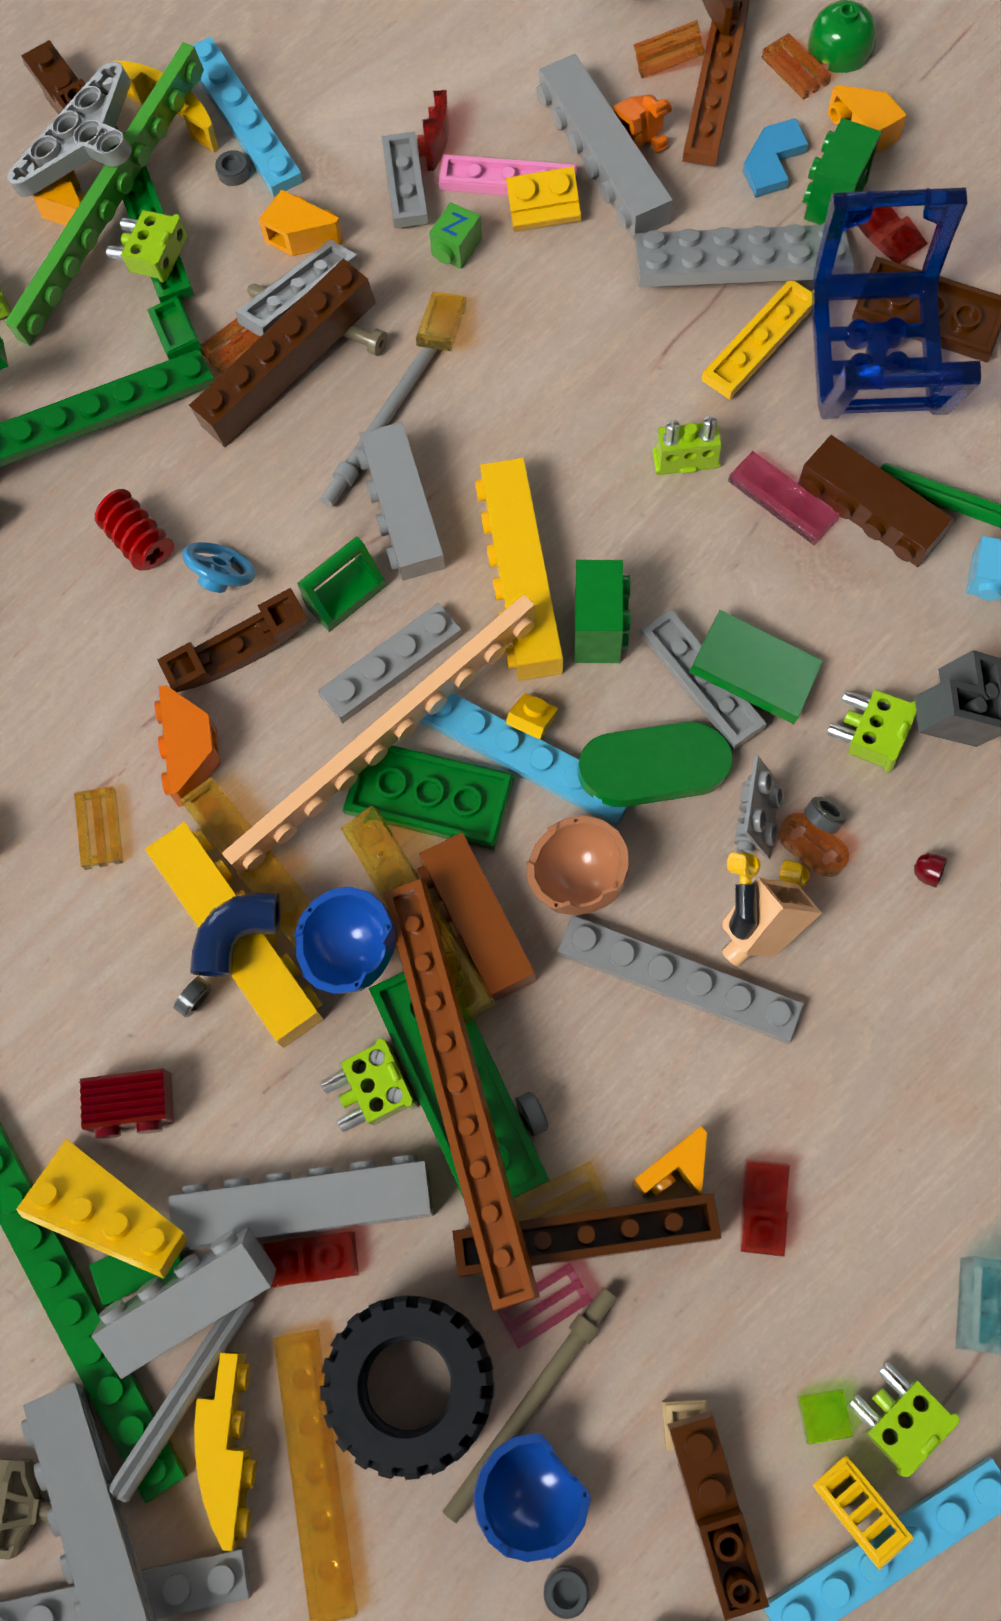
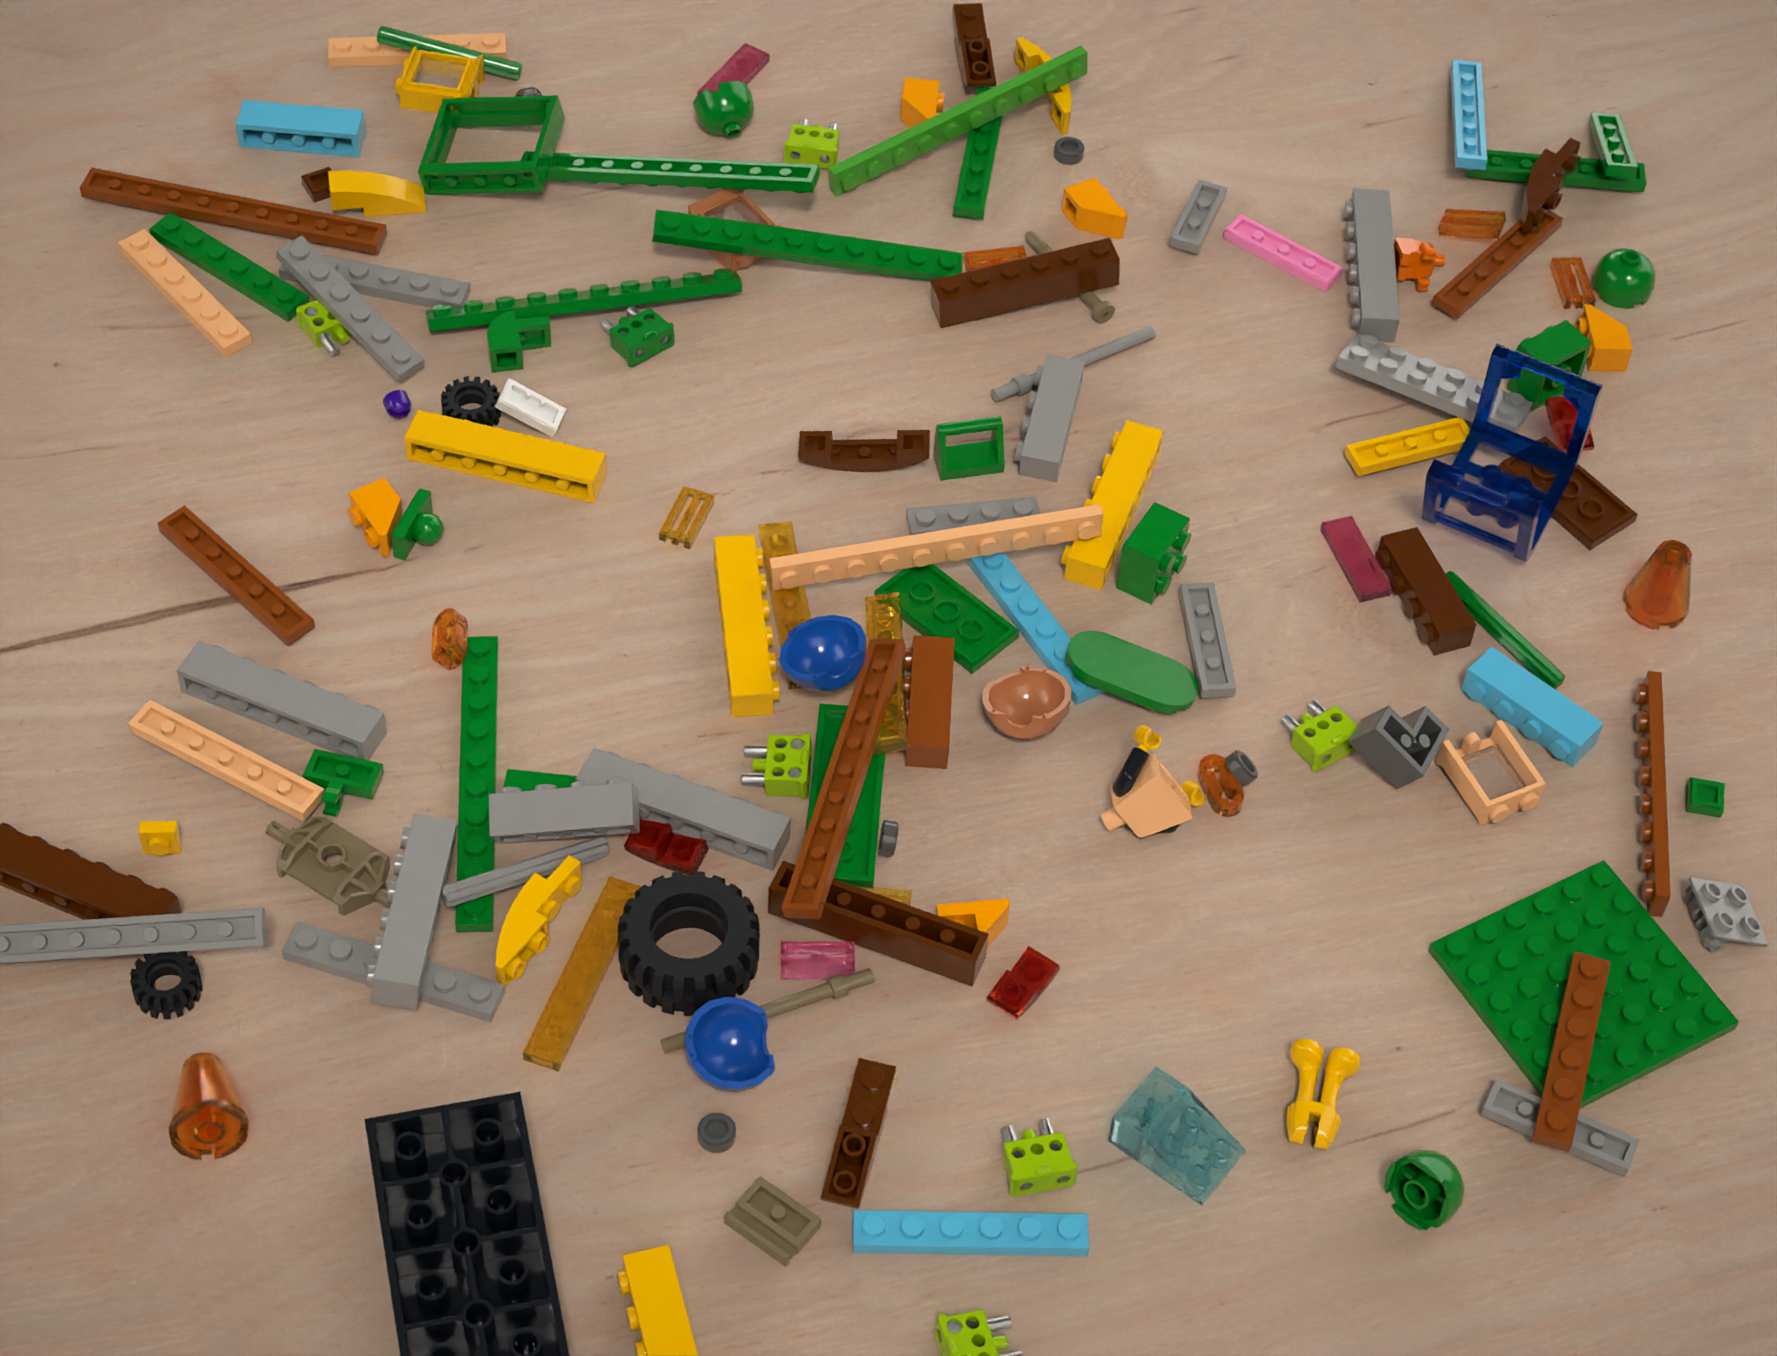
camera: 20 degrees right, 20 degrees down
(71, 147) = (963, 71): light grey beam -> none
(101, 1212) = (540, 732): yellow wing -> none
(126, 1102) = (598, 686): dark red brick -> none
(133, 530) = (836, 344): red piece -> none
(151, 245) = (970, 168): lime piece -> none
(174, 327) = (953, 231): green tile -> none
(186, 744) = (788, 493): orange slope -> none
(192, 996) = (687, 647): dark grey tile -> none
(216, 571) = (883, 395): dark azure piece -> none
(227, 926) = (745, 604): dark blue cylinder -> none
(246, 120) = (1100, 121): medium azure plate -> none
(280, 296) = (1030, 245): light grey plate -> none
(435, 131) = (1244, 195): clear red slope -> none
(441, 321) = (1163, 320): clear yellow tile -> none
(455, 235) = (1212, 270): bright green brick -> none
(532, 715) = (1058, 599): yellow plate -> none
(543, 199) = (1299, 277): yellow plate -> none
(680, 979) = (1058, 818): light grey plate -> none
(687, 447) = (1299, 486): lime piece -> none
(756, 666) = (1253, 649): green tile -> none
(760, 802) = (1191, 734): light grey hinge -> none
(763, 163) = (1508, 327): dark azure tile -> none
(824, 1416) = (979, 1130): clear neon green plate -> none
(832, 1480) = (965, 1183): yellow slope -> none
(930, 868) = (1302, 843): dark red hinge -> none

